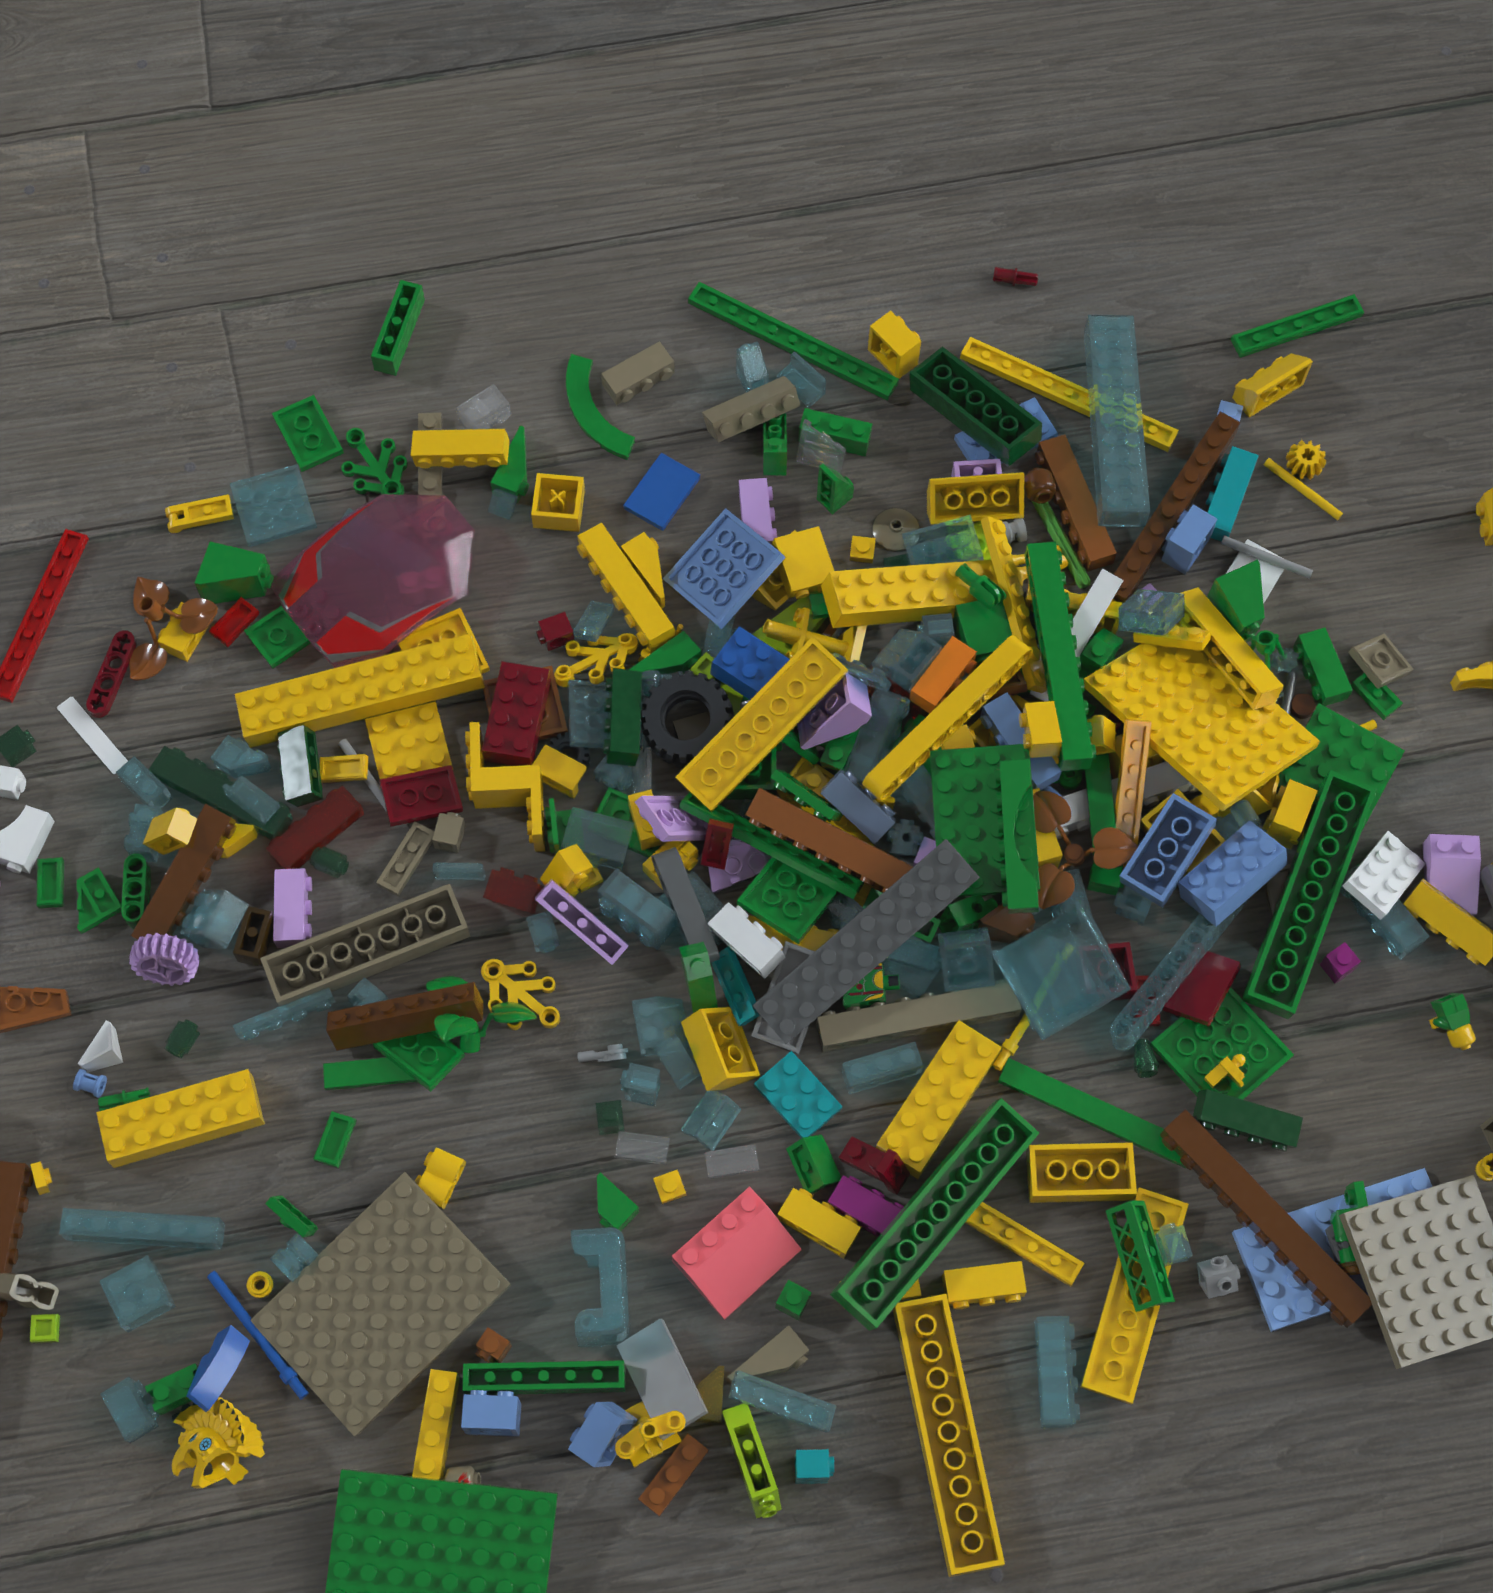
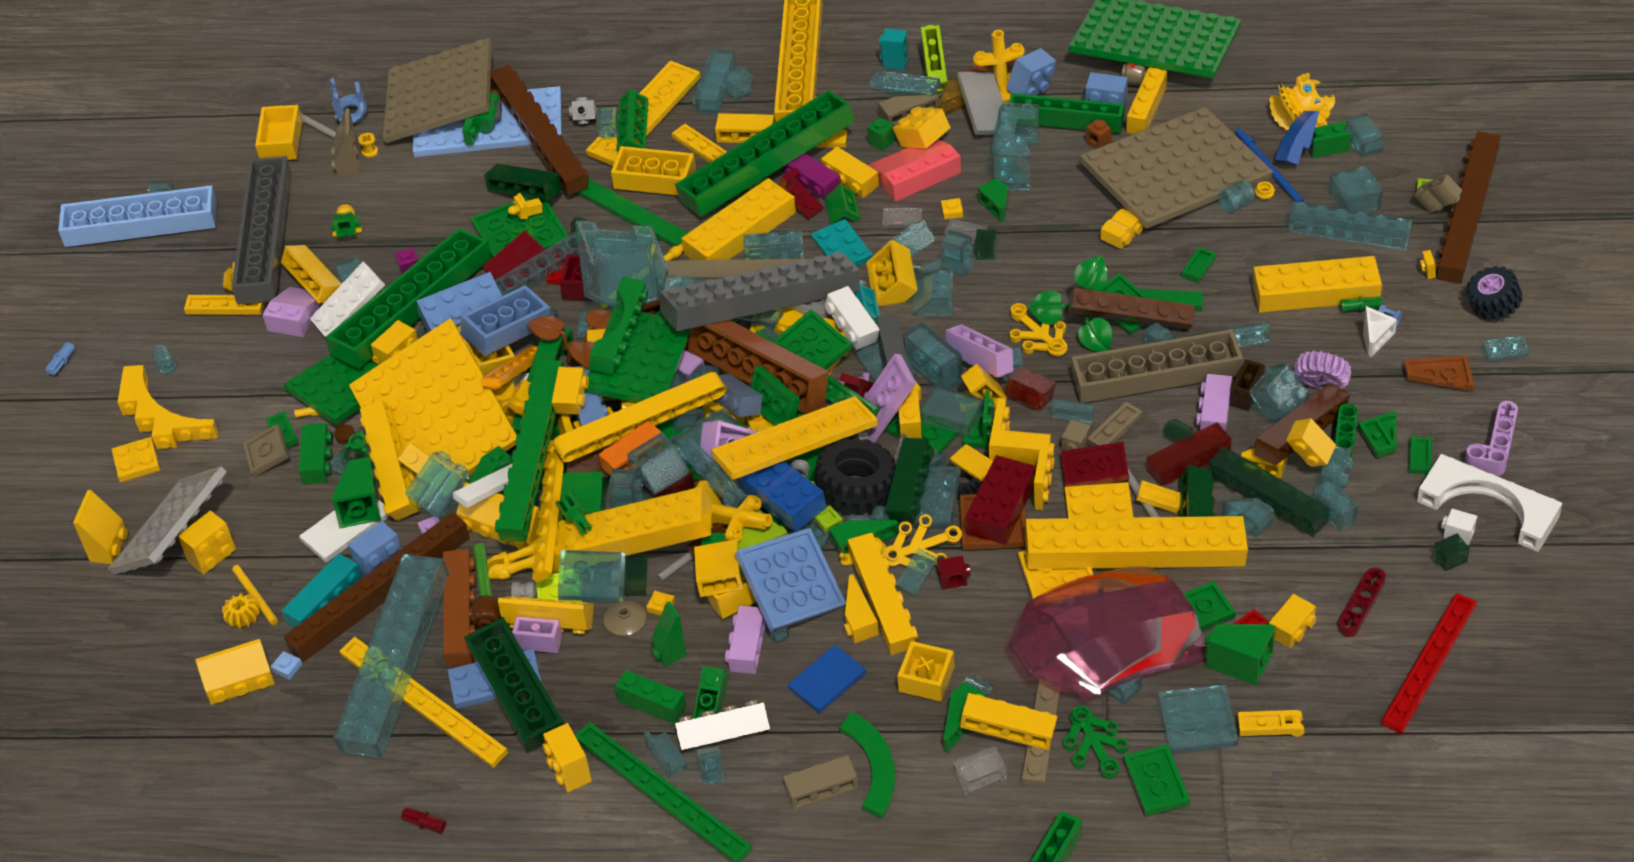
camera: 160 degrees left, 20 degrees down
(92, 734) = (1381, 561): white sticker -> none
(149, 602) = (1326, 607): dark orange plant -> none
(182, 1038) = (1313, 333): clear green brick -> none
(251, 799) = (1241, 465): clear light blue panel -> none
(291, 1216) = (1236, 220): green plate -> none
(614, 1052) = (974, 284): light grey plate -> none
(698, 976) = (895, 300): green slope -> none
(737, 1309) = (921, 127): none -> yellow brick
(819, 448) = (678, 683): clear wing -> none
(1019, 1368) = (738, 82): none -> clear light blue brick
(1267, 557) = (314, 536): light grey bar -> none
(1297, 326) = (182, 734): green tile -> none
(1380, 520) = (206, 542): none -> yellow brick
(1436, 531) = (168, 521): none -> light grey plate

